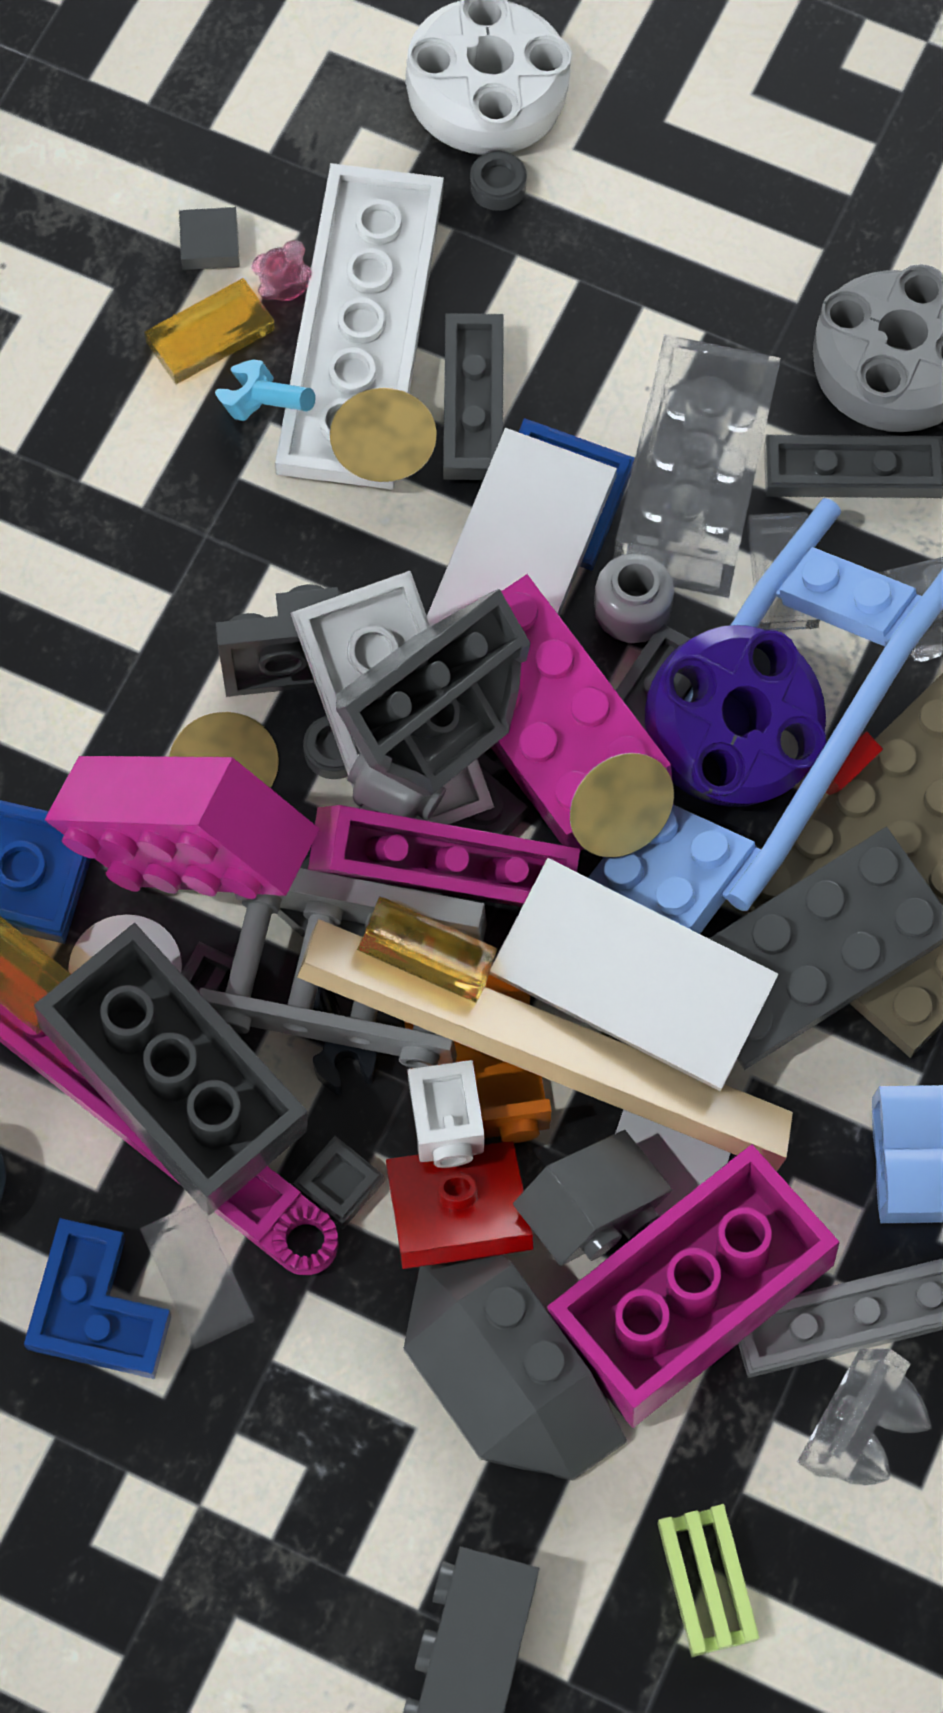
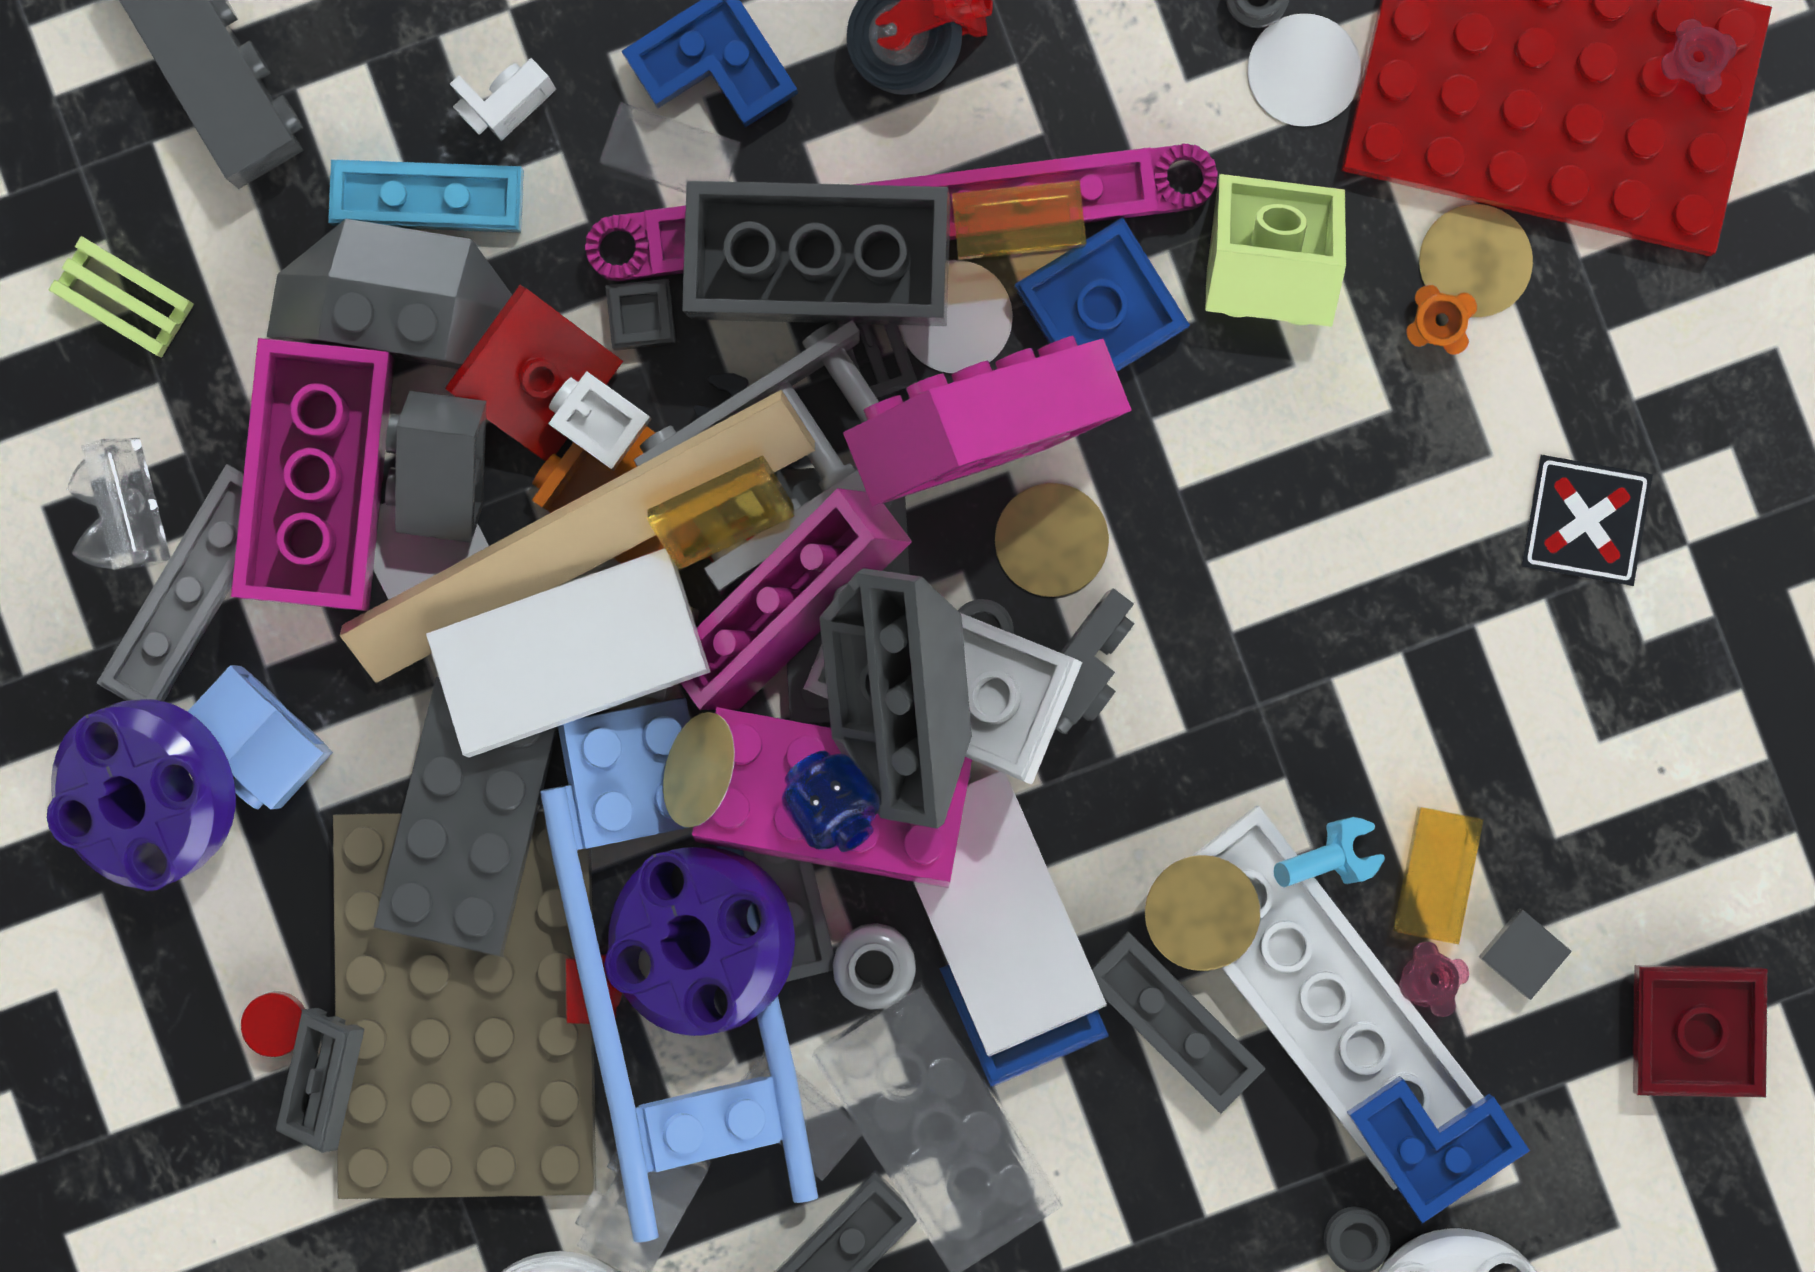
camera: 135 degrees right, 20 degrees up
(154, 100) = (1700, 1031): none -> dark red plate
(262, 1422) = (514, 97): none -> white bracket
(399, 159) = (1433, 1163): none -> blue plate
(404, 1424) = (427, 195): none -> medium azure tile
(553, 679) = (830, 801): none -> clear blue head

